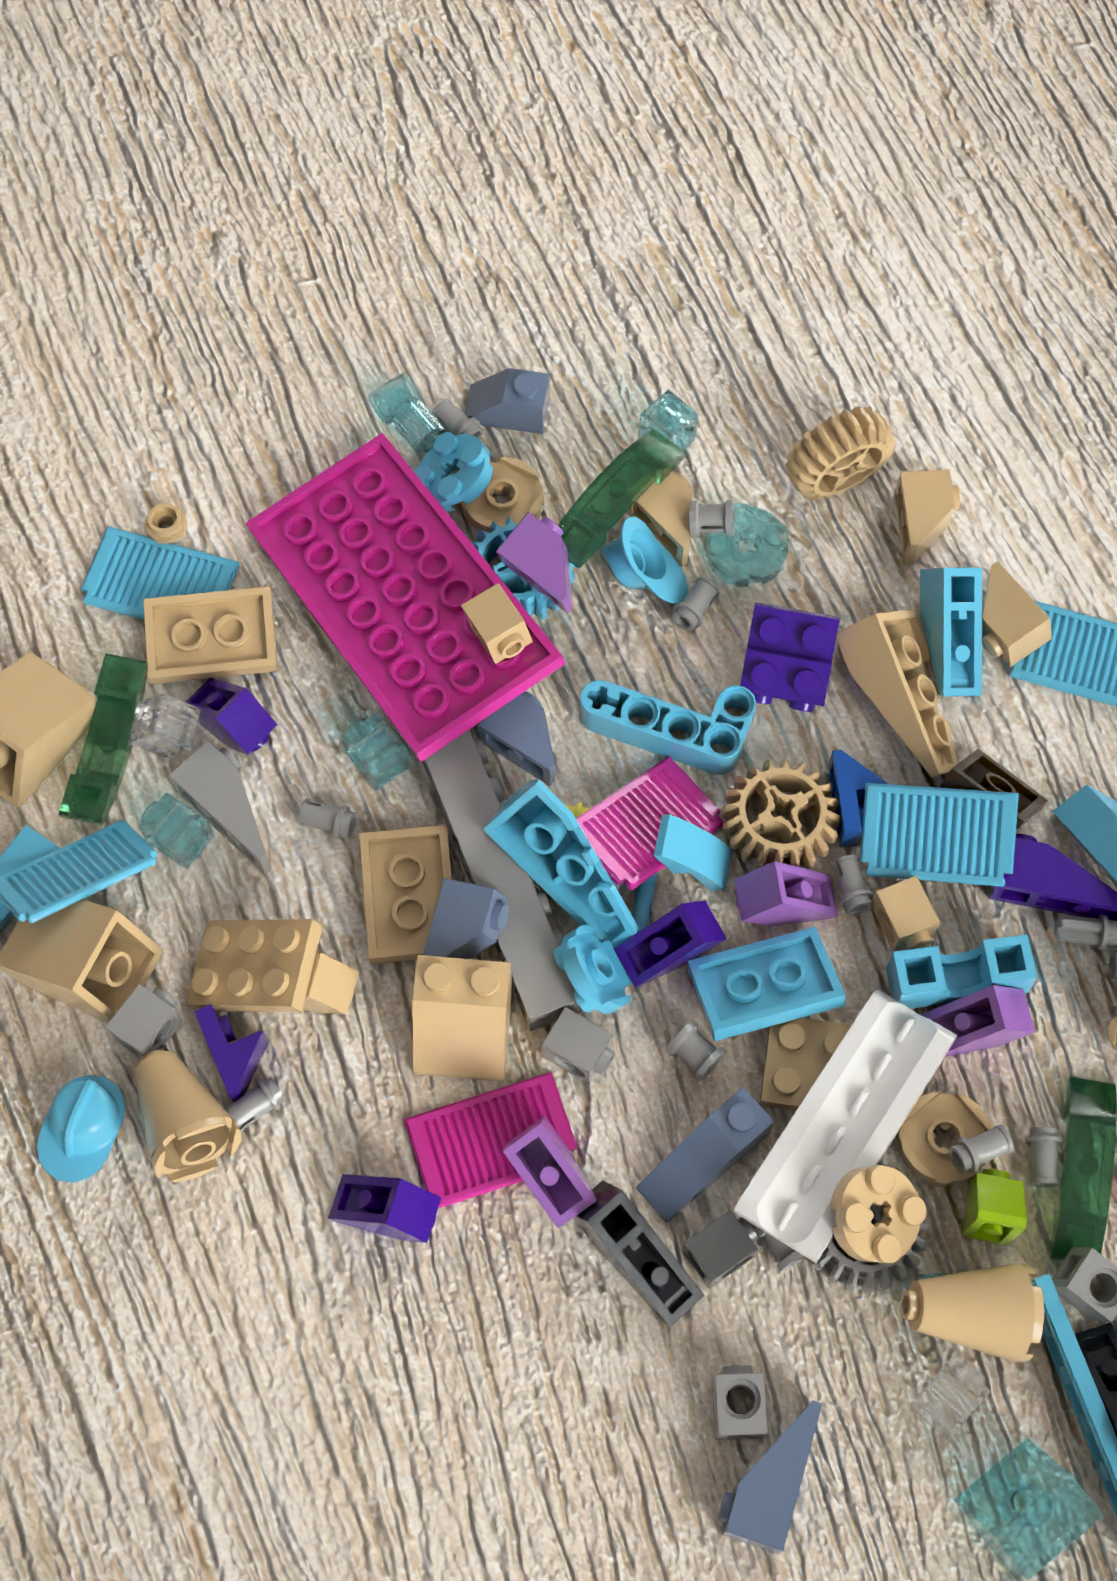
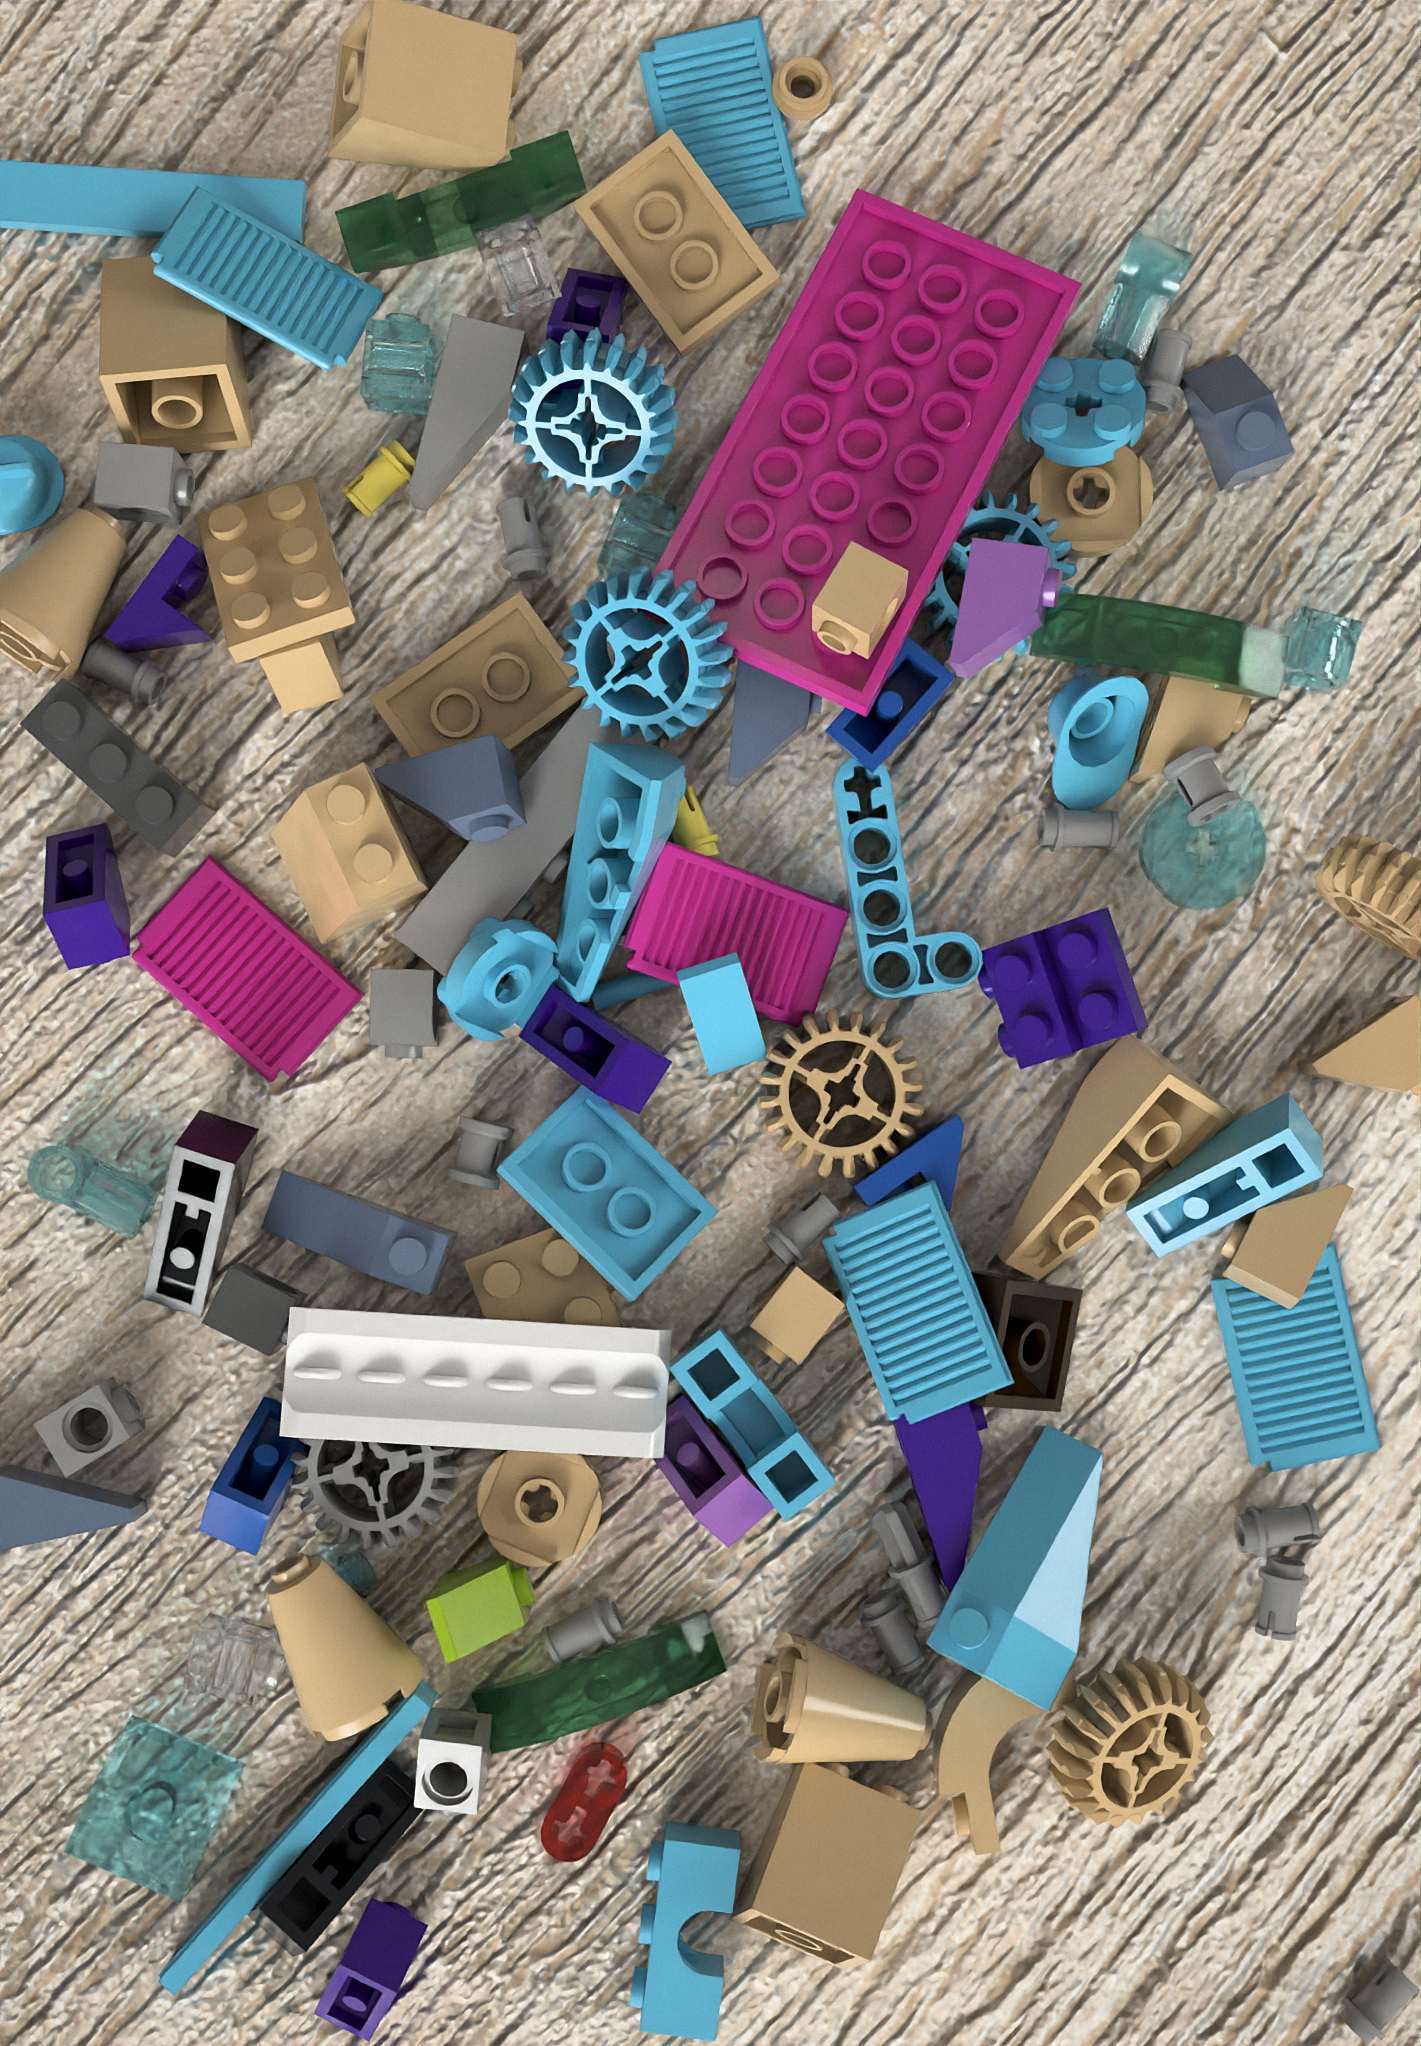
camera: 60 degrees right, 20 degrees up
(236, 879) = (380, 478): none -> light yellow pin
(307, 705) = (563, 427): none -> medium azure gear
(315, 1138) = (117, 768): none -> dark grey brick
(454, 779) = (611, 611): none -> medium azure gear
(550, 1171) = (225, 1062): medium lavender slope -> none
(577, 671) = (903, 702): none -> blue slope
(583, 1310) = (97, 1191): none -> clear light blue piece
(784, 895) = (737, 1156): medium lavender slope -> none
(835, 1312) = (253, 1482): none -> blue slope
(900, 1214) = (368, 1508): tan plate -> none
(982, 1148) = (537, 1555): light grey pin -> none

